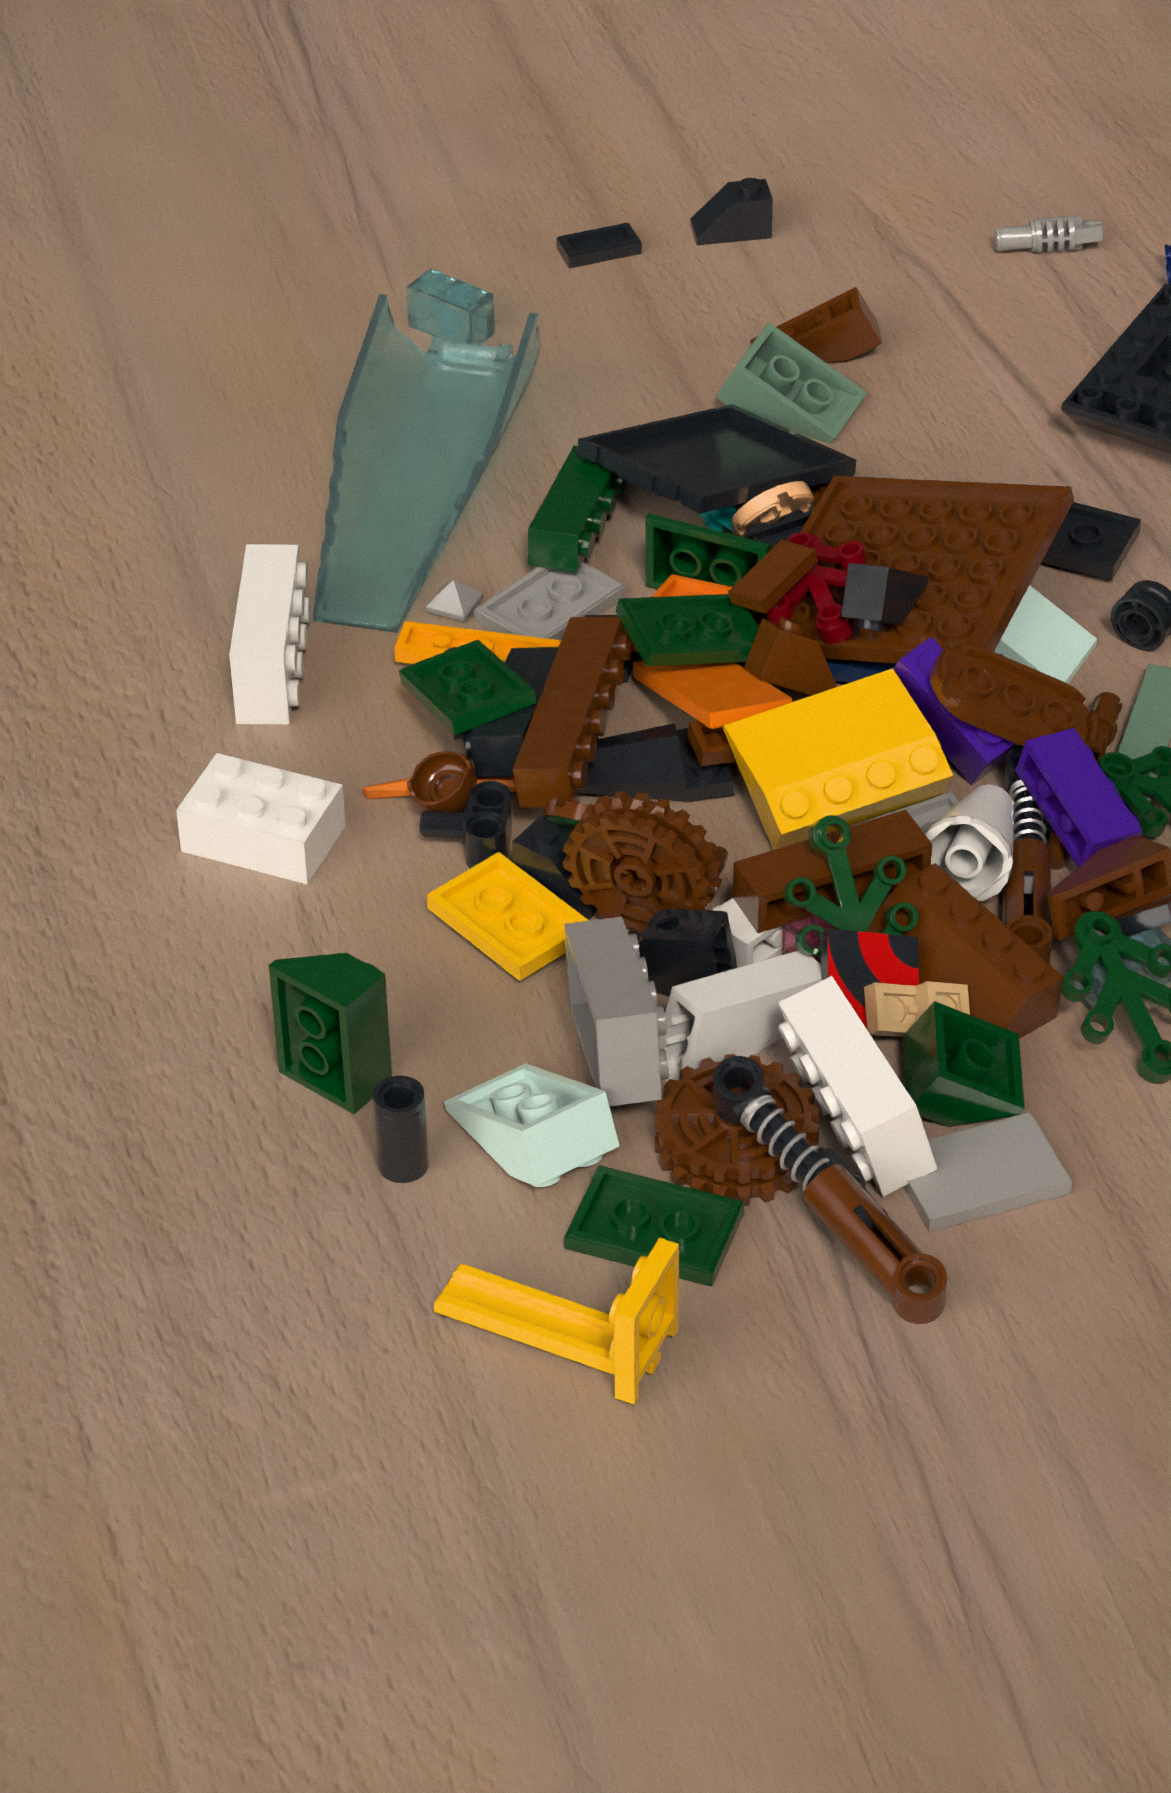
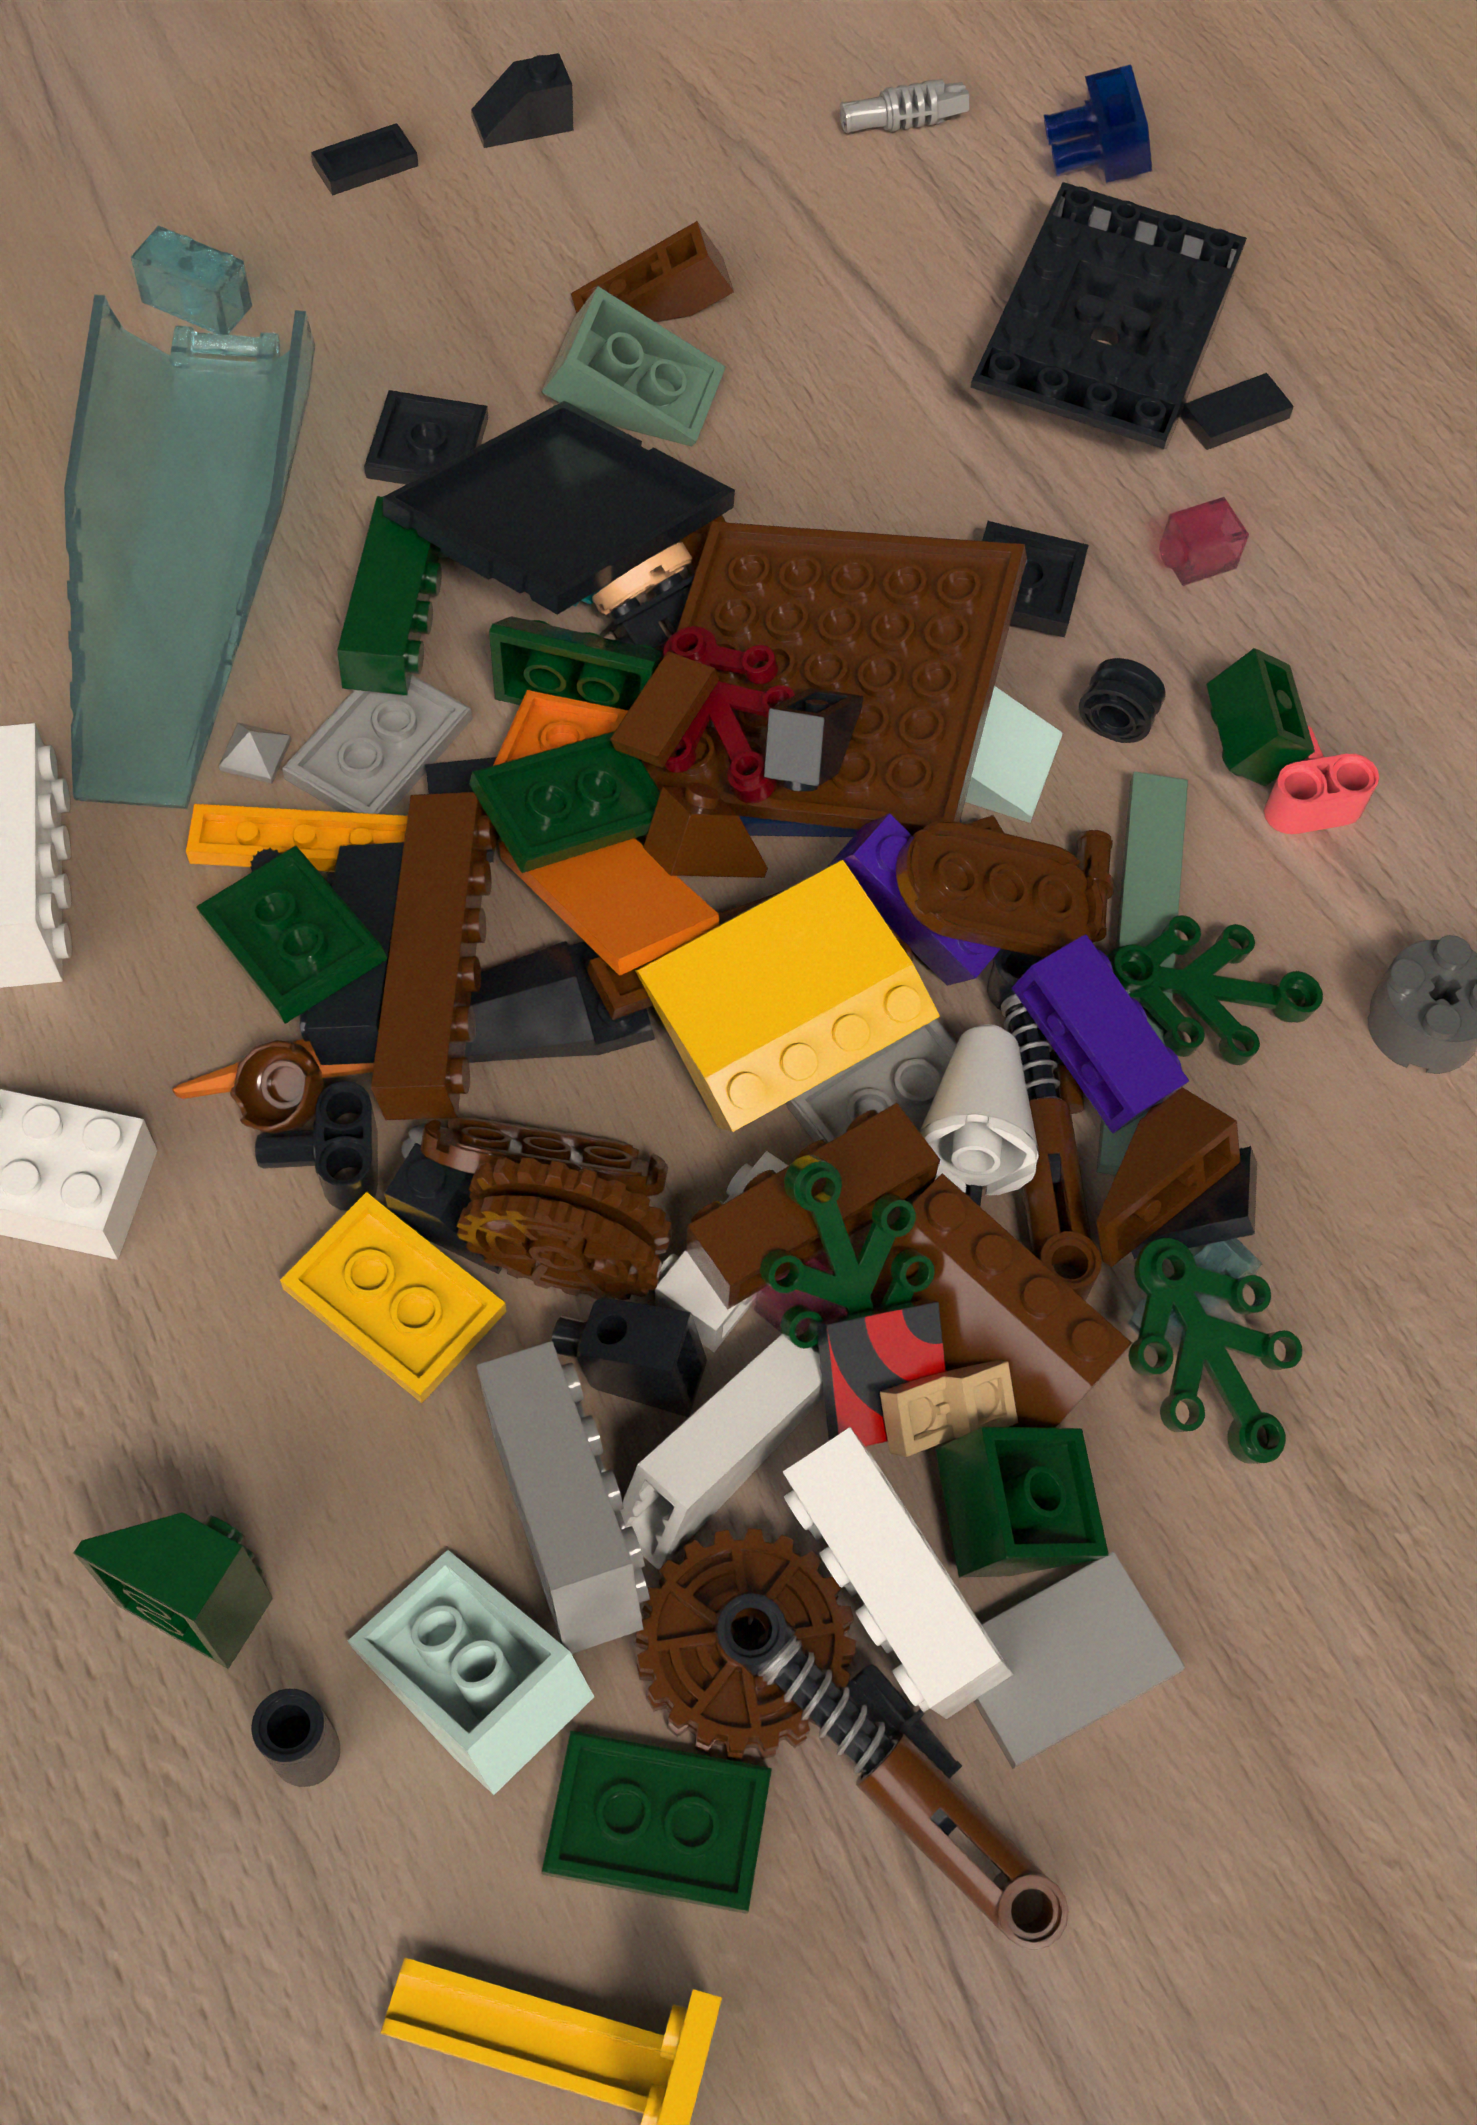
camera: 15 degrees left, 20 degrees up
(614, 411) = (421, 435): none -> black tile

